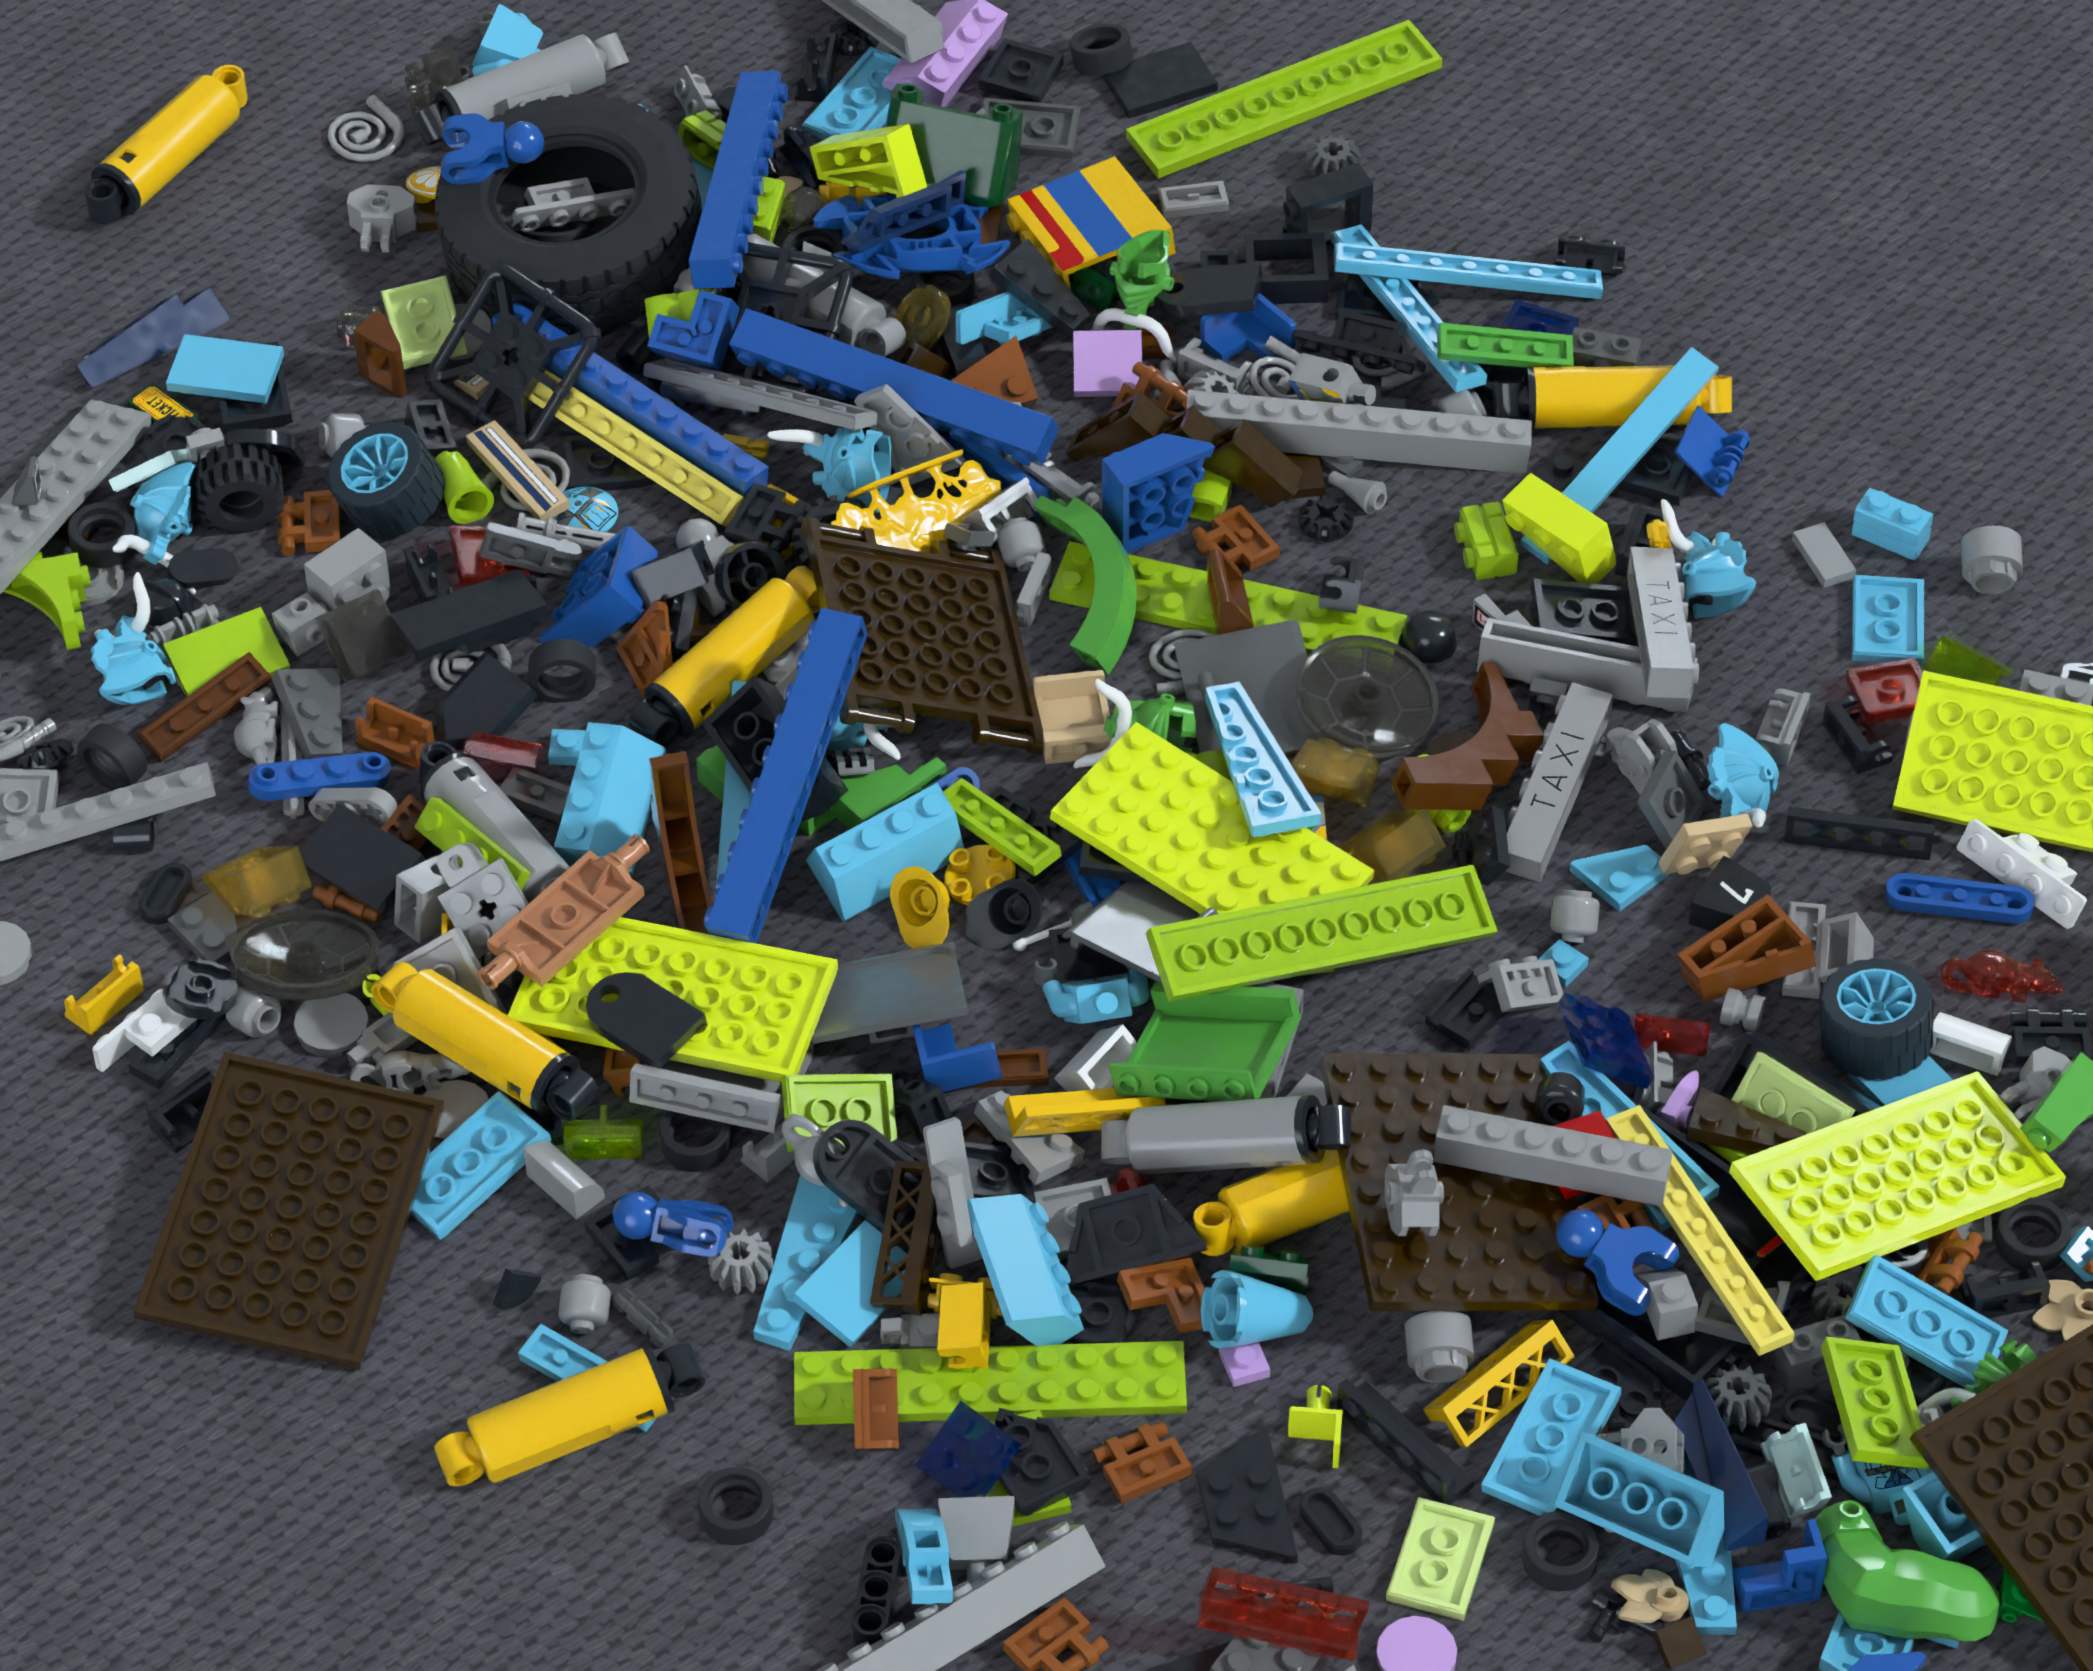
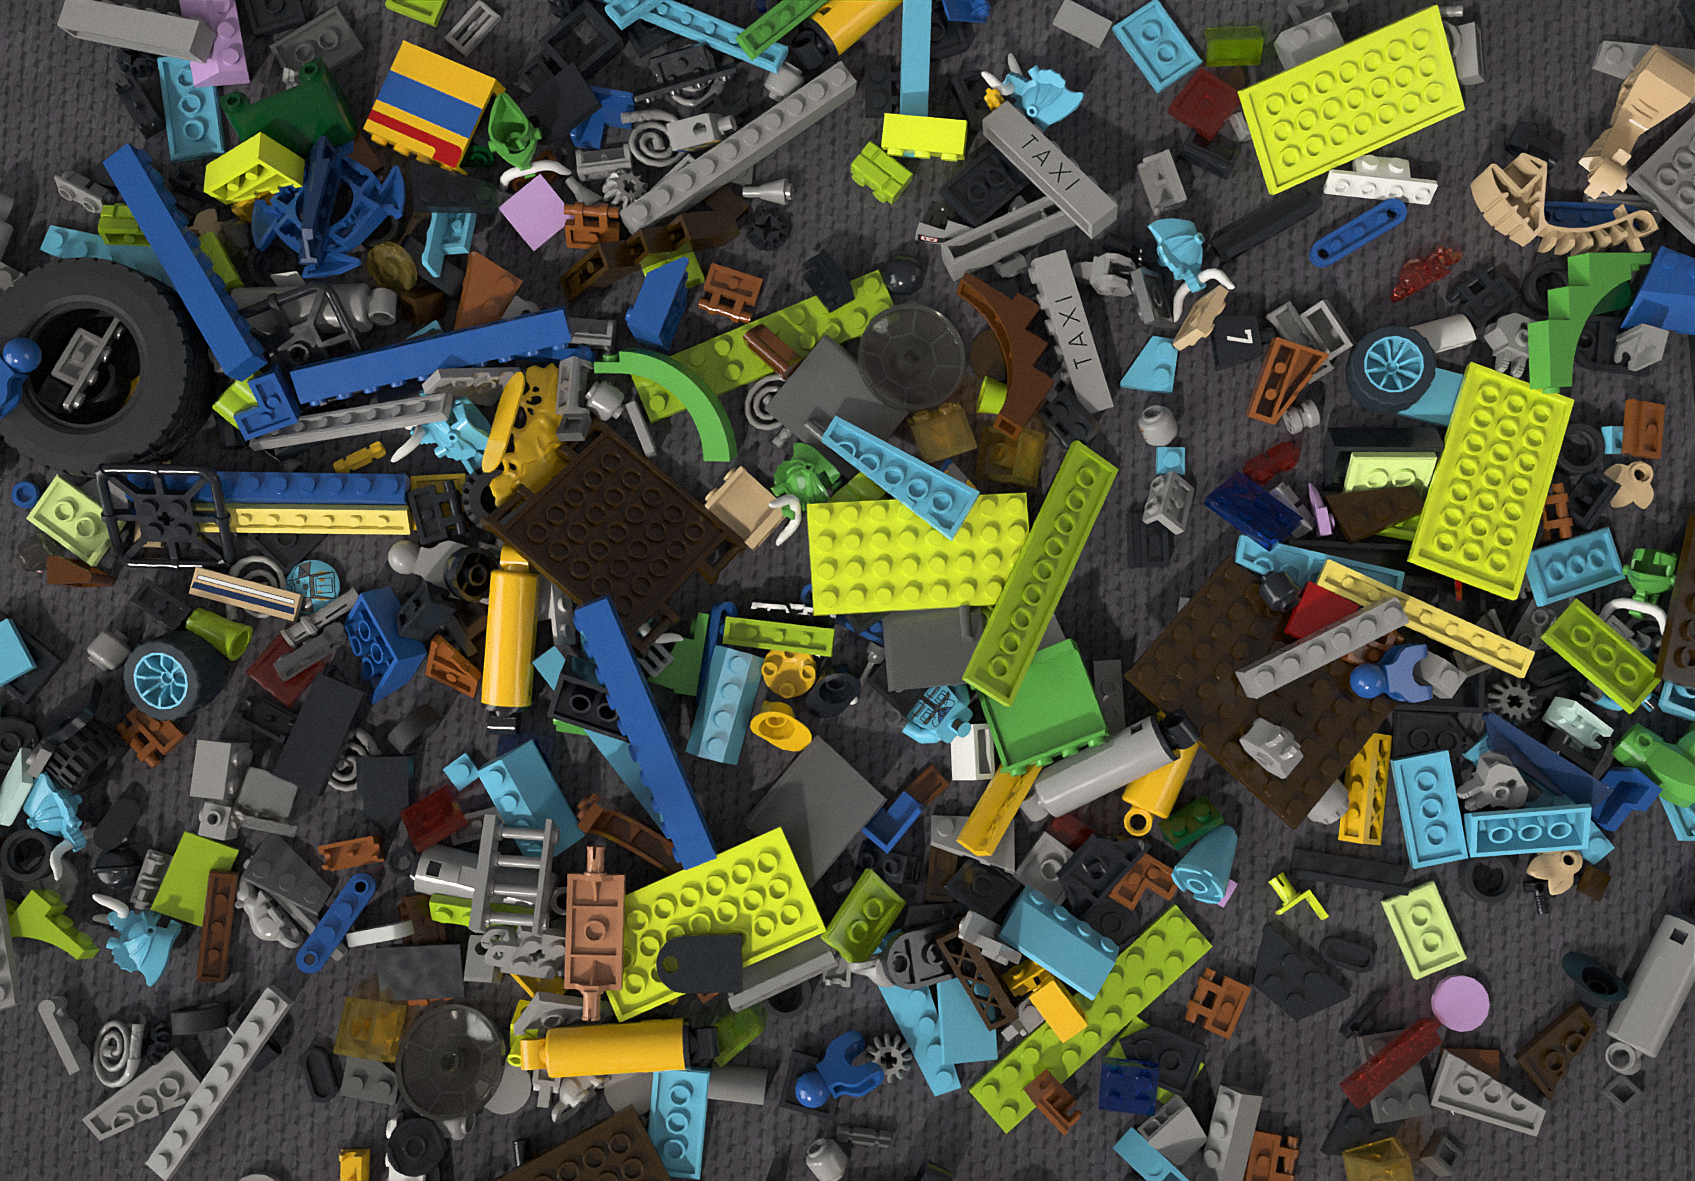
camera: 40 degrees left, 35 degrees up
(397, 277) = (26, 494): none -> blue tile
(528, 792) = (491, 859): none -> light grey fence

